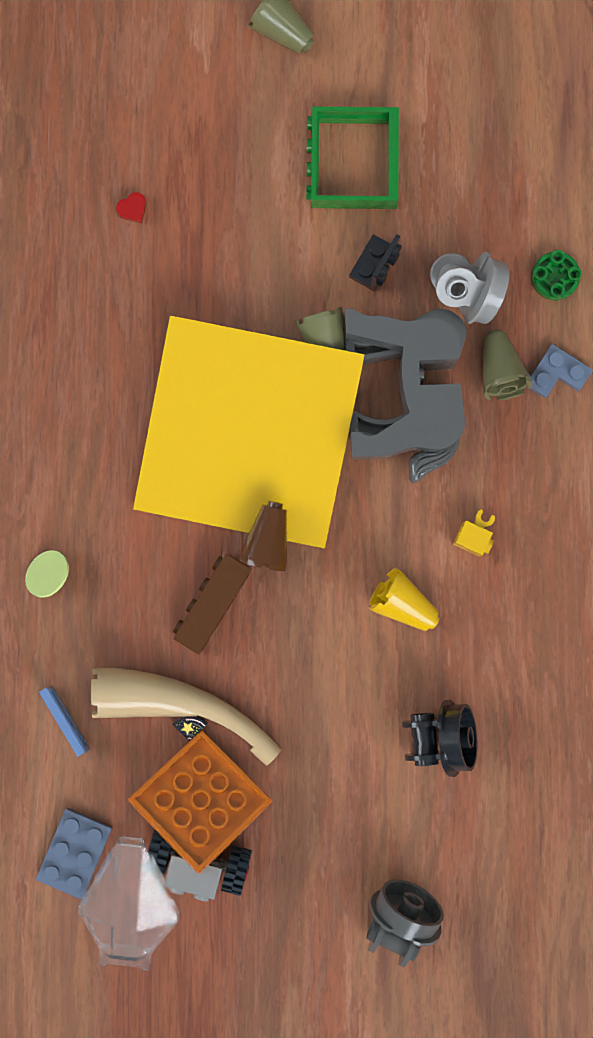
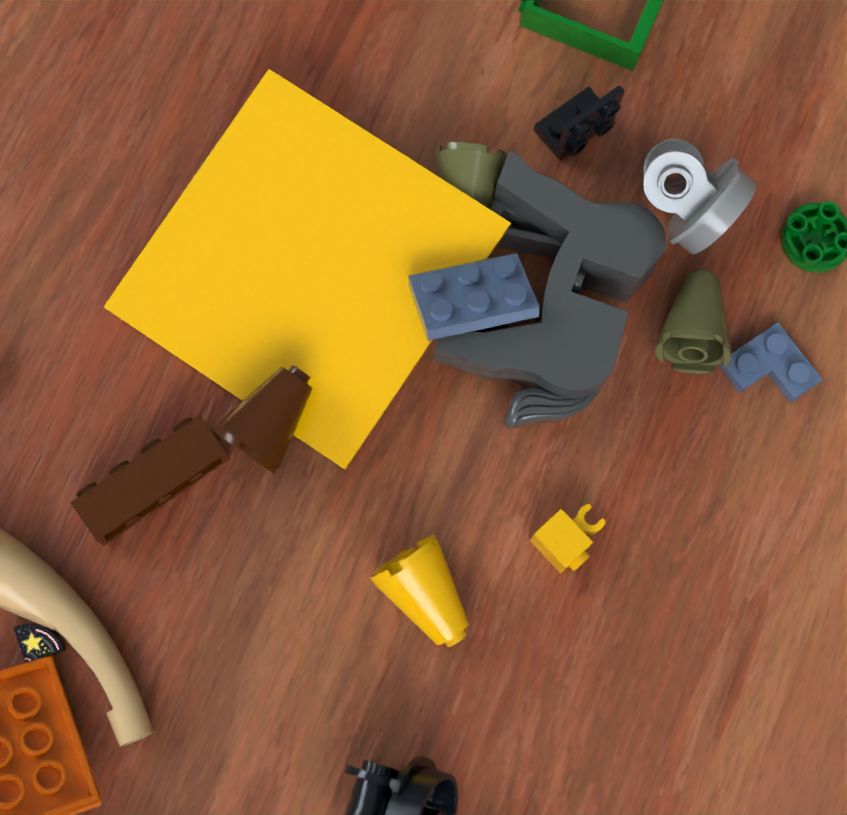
camera: 10 degrees right, 10 degrees down
(361, 413) = (473, 296): none -> sand blue plate

